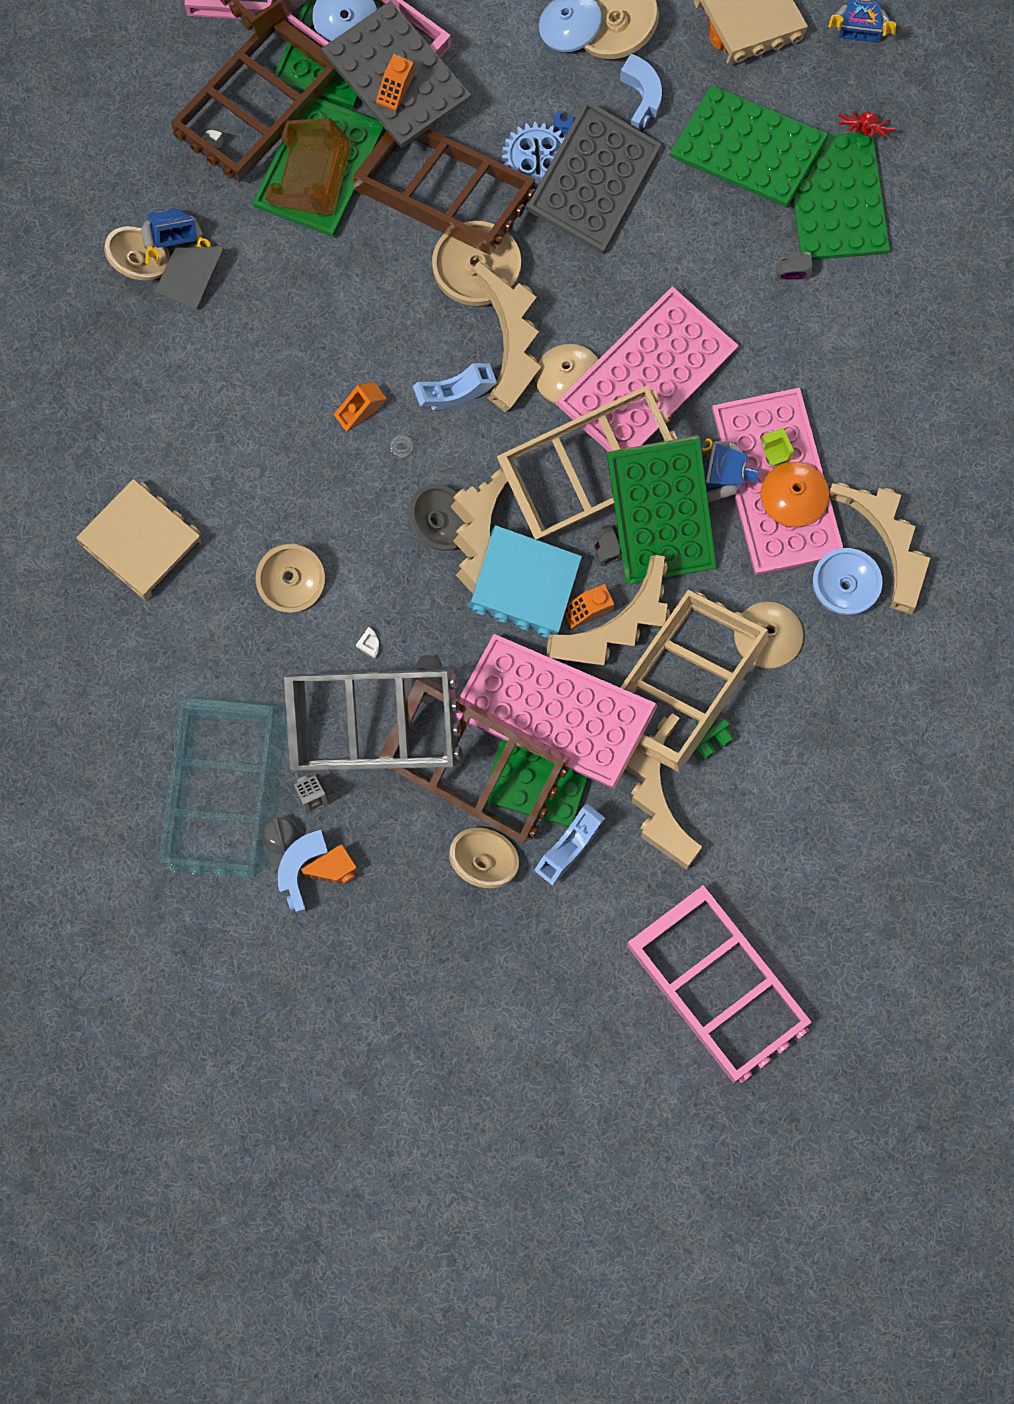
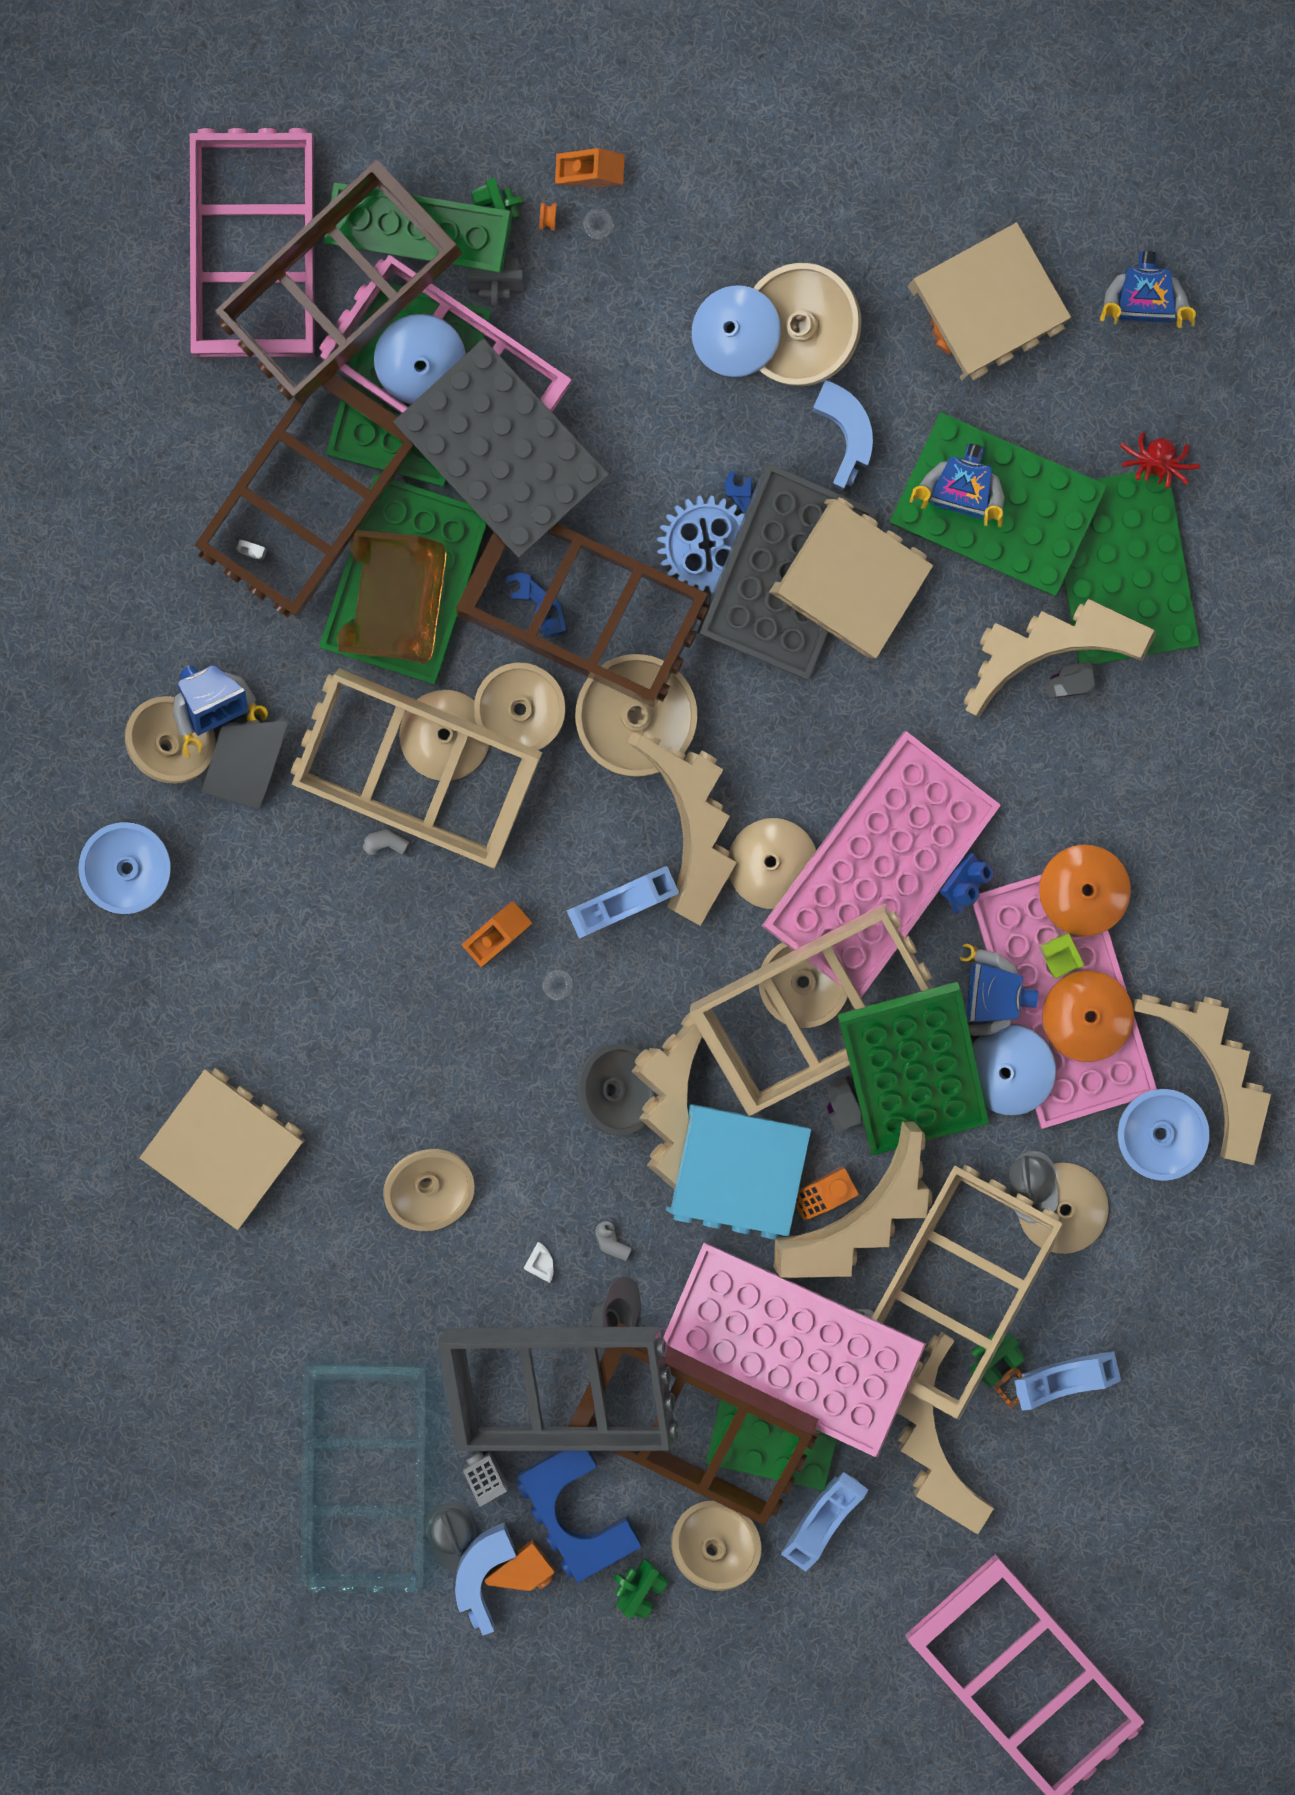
camera: 10 degrees left, 15 degrees up
(90, 325) = (102, 868): none -> light blue dish
(249, 244) = (421, 828): none -> tan window
(285, 336) = (383, 839): none -> light grey arm
(338, 283) = (424, 747): none -> tan dish
(379, 858) = (581, 1553): none -> blue arch
(388, 240) = (521, 685): none -> tan dish
(395, 82) = (503, 476): orange slope -> none
(405, 180) = (530, 590): none -> blue piece
(421, 631) = (608, 1242): none -> light grey arm
(427, 882) = (634, 1588): none -> green hips
(579, 444) = (809, 1005): none -> tan dish
(639, 181) = (853, 578): none -> tan panel
(709, 393) = (963, 883): none -> blue hips
(722, 762) = (1006, 1386): none -> tile
(723, 125) = (963, 487): none -> torso
(748, 533) = (1030, 1066): none -> light blue dish
(748, 604) = (1034, 1178): none -> dark grey piece
(765, 756) = (1067, 1378): none -> light blue arch
(781, 231) = (1011, 653): none -> tan arch
(797, 419) = (1062, 890): none -> orange dish

